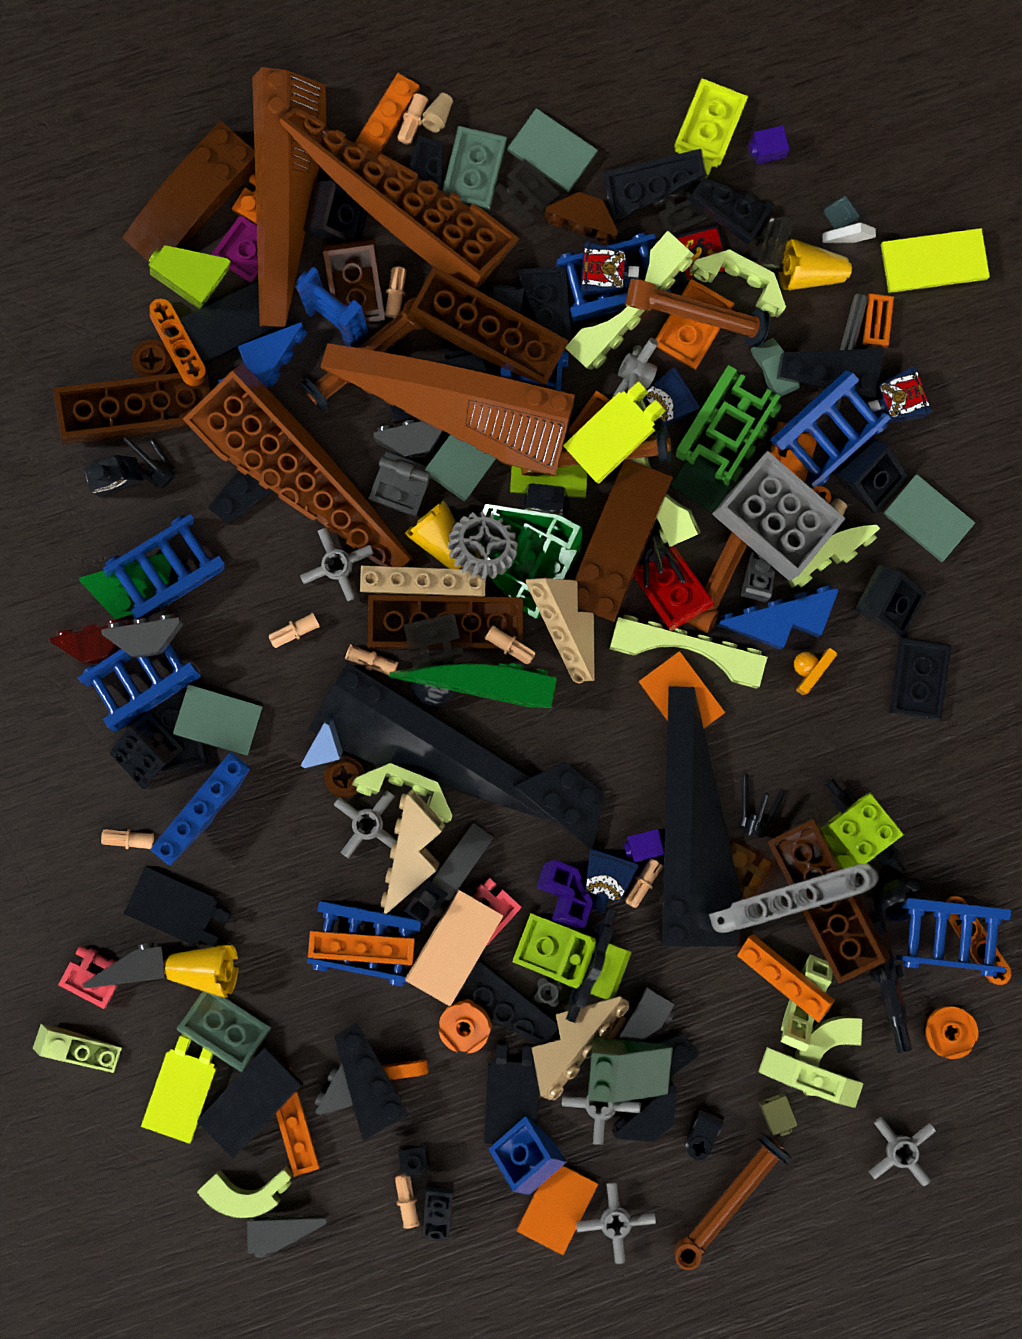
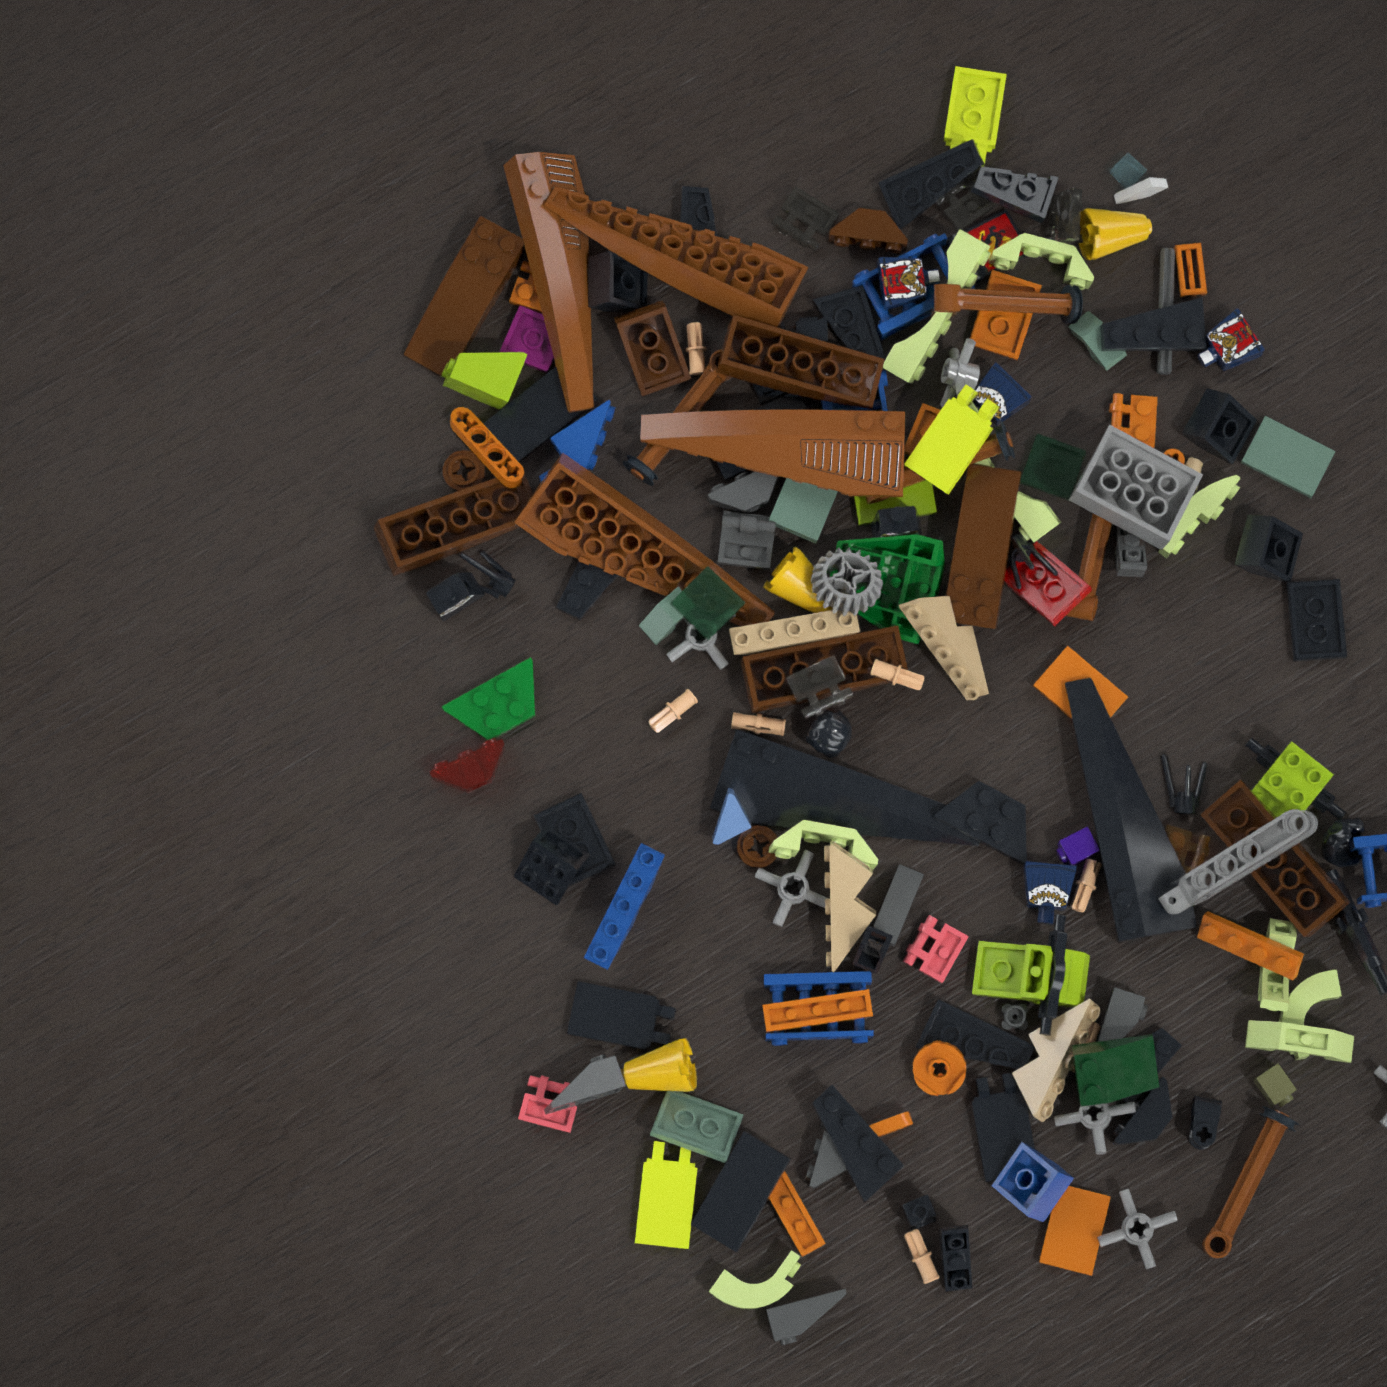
camera: 10 degrees left, 5 degrees down
(76, 1048) = (551, 1179): yellowish green slope -> none
(127, 839) = (553, 957): light nougat axle -> none
(140, 701) = (535, 815): blue fence -> none
(144, 637) = (527, 747): dark grey slope -> none
(186, 581) = (536, 701): blue fence -> none
(217, 720) = (616, 817): sand green tile -> none
(307, 538) = (662, 619): none -> sand green slope
(345, 317) = (655, 386): blue fence -> none
(347, 536) = (707, 603): none -> clear green tile
(388, 114) = (645, 170): orange plate -> none
(412, 118) = (672, 170): light nougat axle -> none
(437, 113) = (695, 161): tan cone -> none
(454, 947) = (910, 990): light nougat tile -> none
(475, 166) = (746, 204): sand green tile -> none
(500, 683) = (884, 715): green slope -> none
(552, 150) = (821, 171): sand green tile -> none
(573, 901) = (1006, 902): dark purple brick -> none
(711, 415) = (1045, 403): bright green fence -> none
(739, 665) = (1133, 647): yellowish green arch -> none
(769, 145) = (1039, 118): dark purple brick -> none
(774, 623) = (1156, 596): blue slope -> none
(807, 421) = (1142, 387): blue fence -> none
(811, 668) = (1202, 632): light orange tile -> none
(935, 260) = (1233, 197): neon yellow tile -> none

